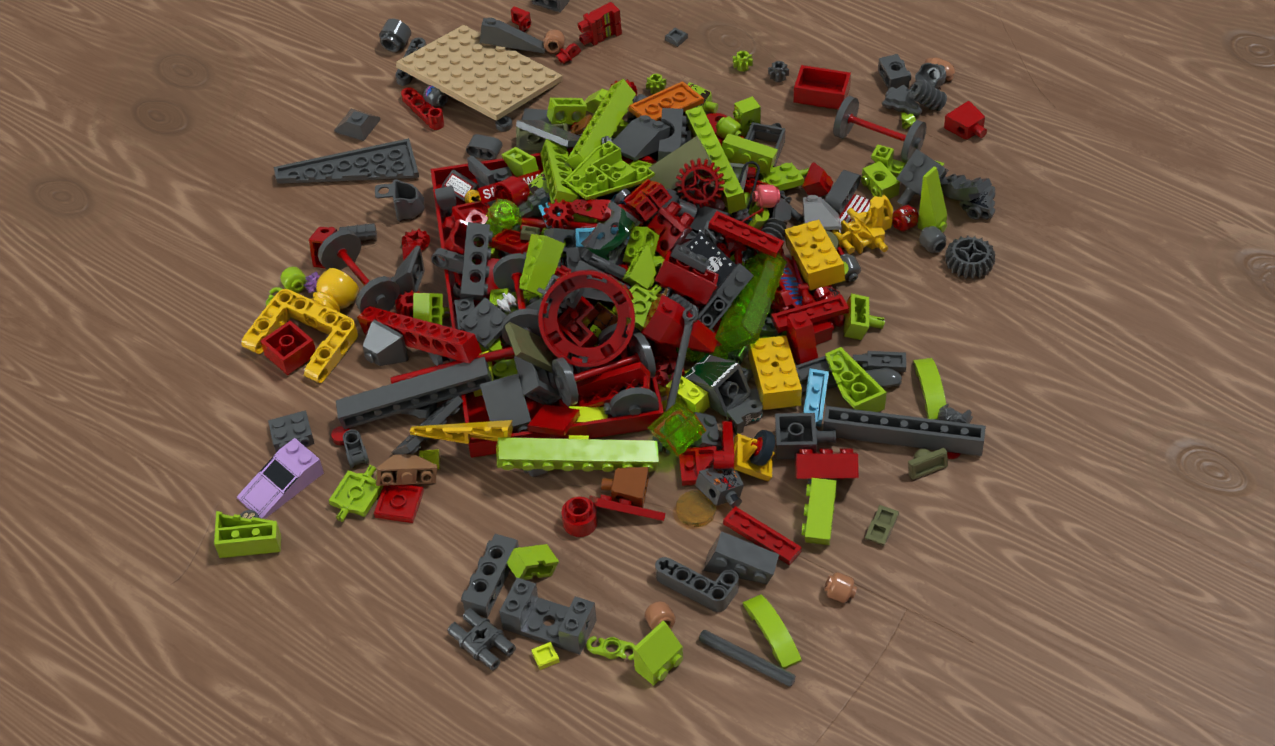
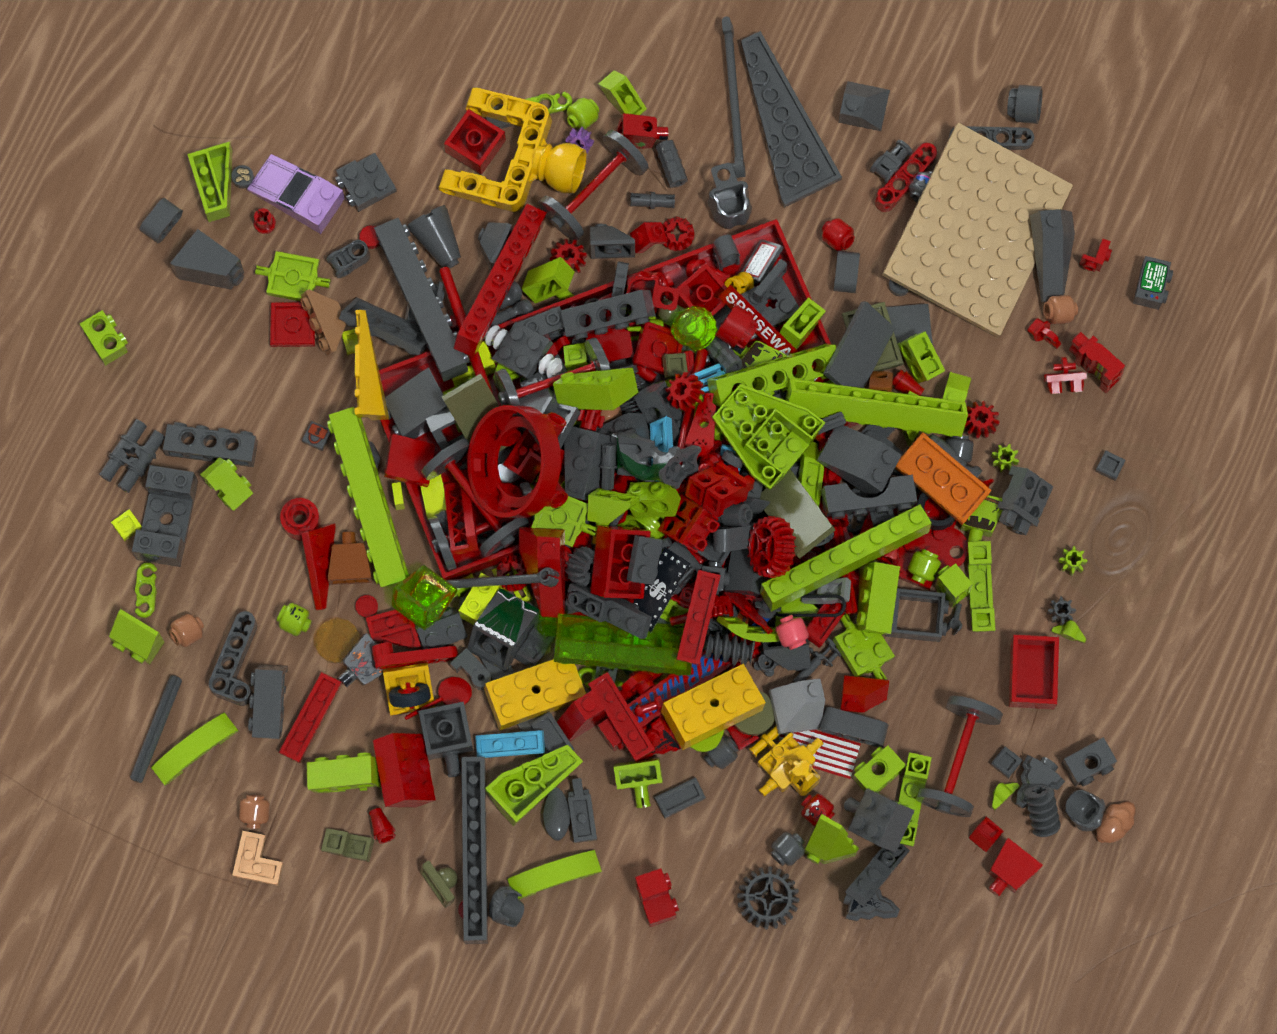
camera: 75 degrees right, 25 degrees up
(264, 187) = (738, 165): none -> dark grey hinge
(265, 585) = (161, 220): none -> dark grey beam
(288, 253) = (622, 94): none -> lime slope
(293, 512) = (261, 226): none -> red bush
(321, 546) = (207, 263): none -> dark grey slope
(356, 380) = (437, 236): none -> dark grey cone
(360, 649) = (101, 339): none -> lime brick
(383, 249) = (652, 200): none -> dark grey pin
(408, 113) = (891, 162): none -> dark grey connector
(453, 147) = (838, 234): none -> red head
(506, 498) = (316, 436): none -> tile
(606, 46) = (1075, 379): none -> hips
(669, 484) = (366, 606): none -> red piece
(670, 532) = (294, 619): none -> lime head
(691, 72) = (1024, 500): none -> dark grey hips
(762, 425) = (450, 691): none -> red piece
(772, 113) = (981, 592): none -> lime slope
(794, 70) = (1070, 631): none -> lime piece
(869, 497) = (381, 826): none -> red cone
(879, 301) = (680, 798): none -> dark grey tile
(884, 117) = (1006, 762): none -> dark grey tile
(888, 598) = (250, 864): none -> light nougat plate
(938, 135) = (986, 834): none -> red slope
(960, 322) = (655, 897): none -> red brick

